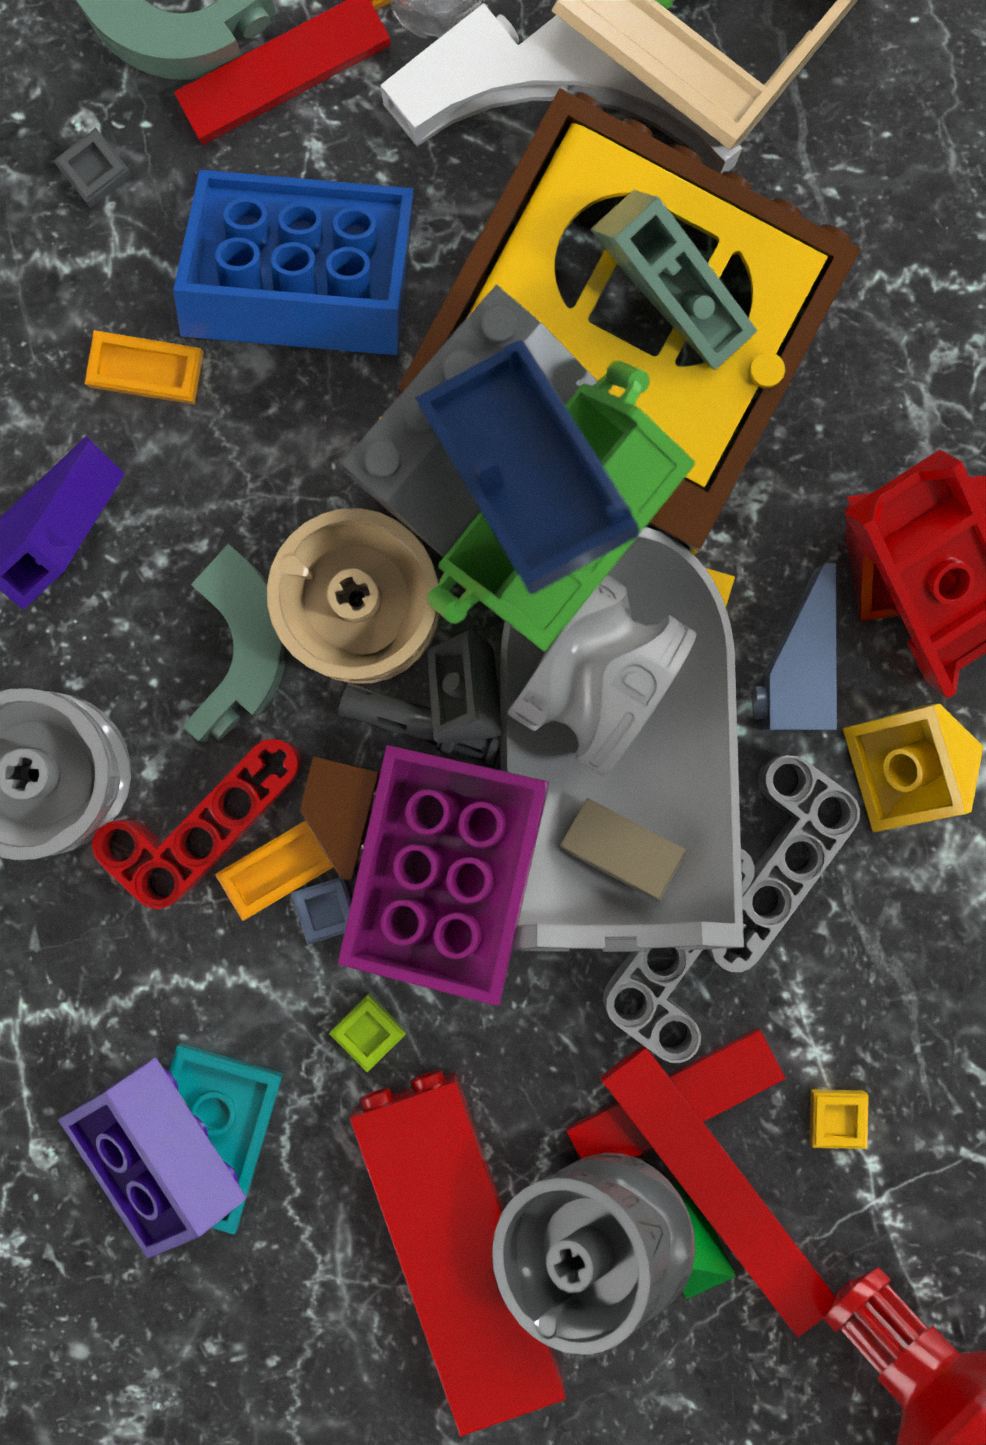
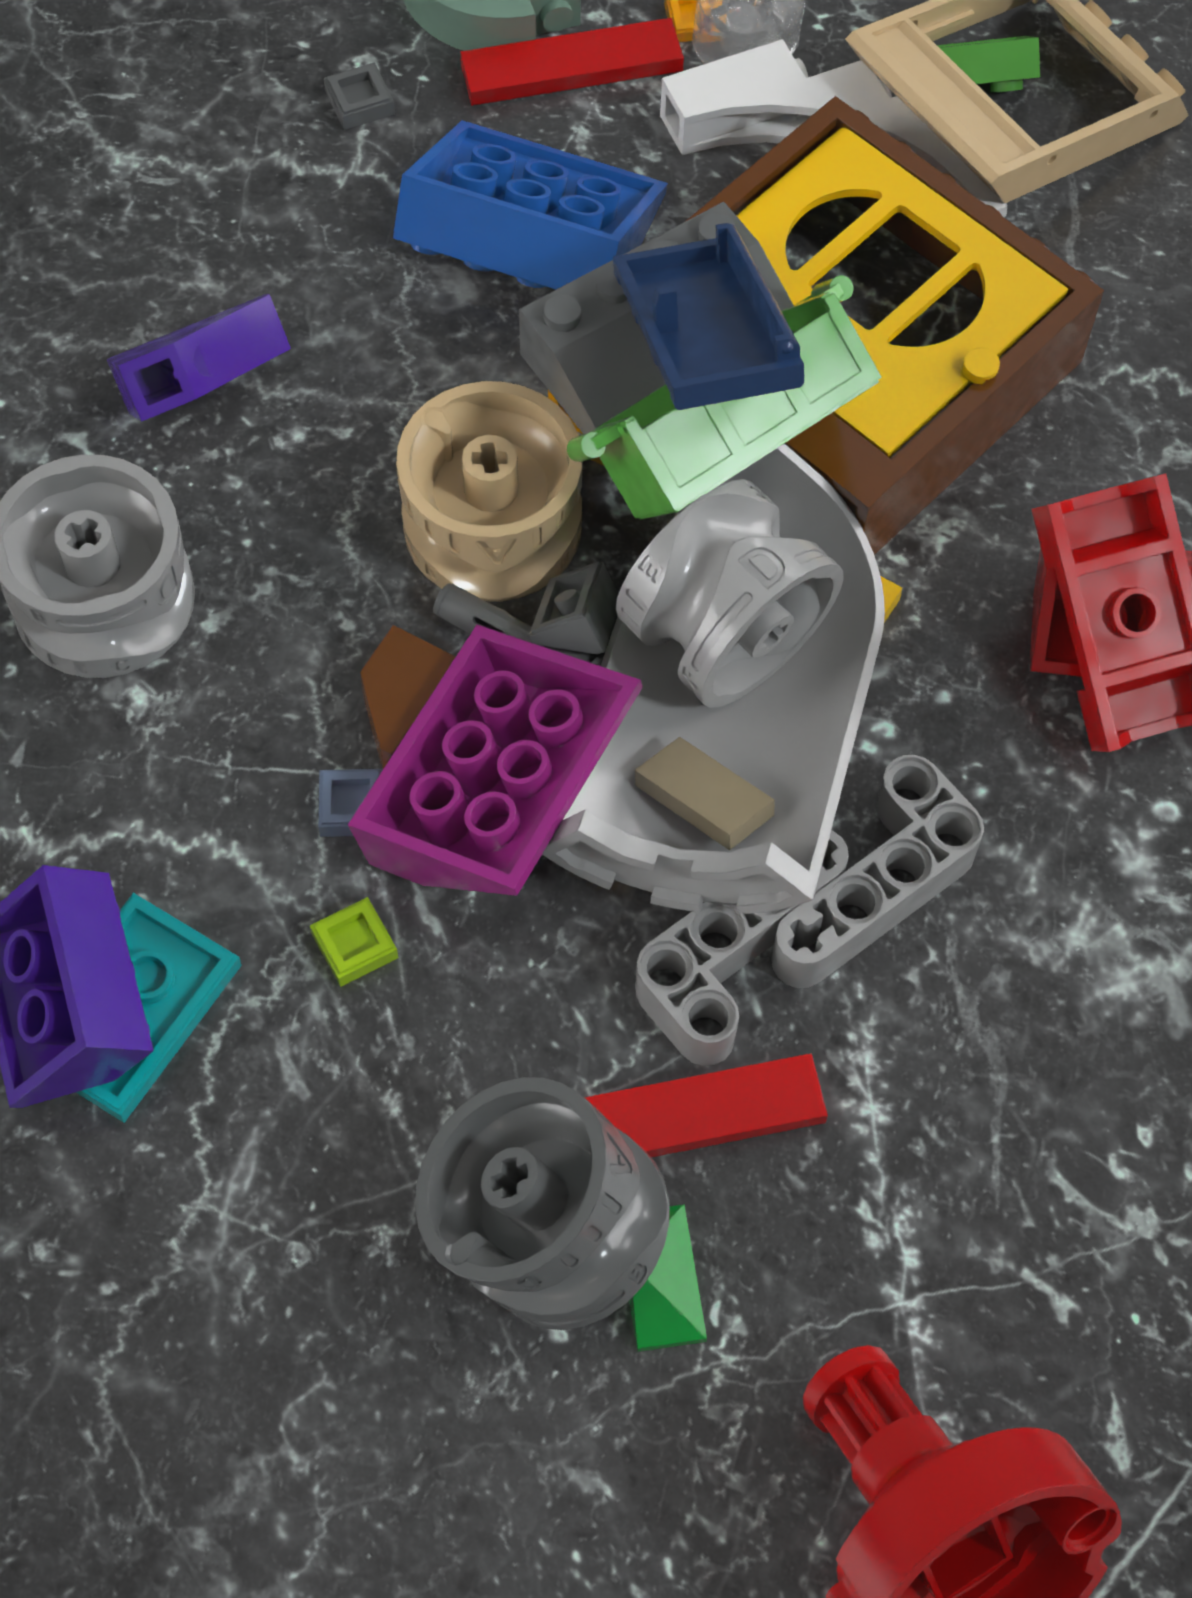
camera: 15 degrees right, 25 degrees down
(144, 367) = (346, 264): light orange tile -> none
(210, 815) = (340, 627): red beam -> none
(258, 653) = (365, 534): sand green arch -> none
(274, 870) = (311, 744): light orange tile -> none
(443, 1228) = (372, 1284): red brick -> none
(674, 276) = (905, 254): sand green slope -> none
(719, 1189) = (716, 1220): red tile -> none
(801, 674) = (952, 689): sand blue slope -> none
(838, 1119) = (880, 1186): yellow tile -> none
(914, 766) = (1056, 808): yellow slope -> none

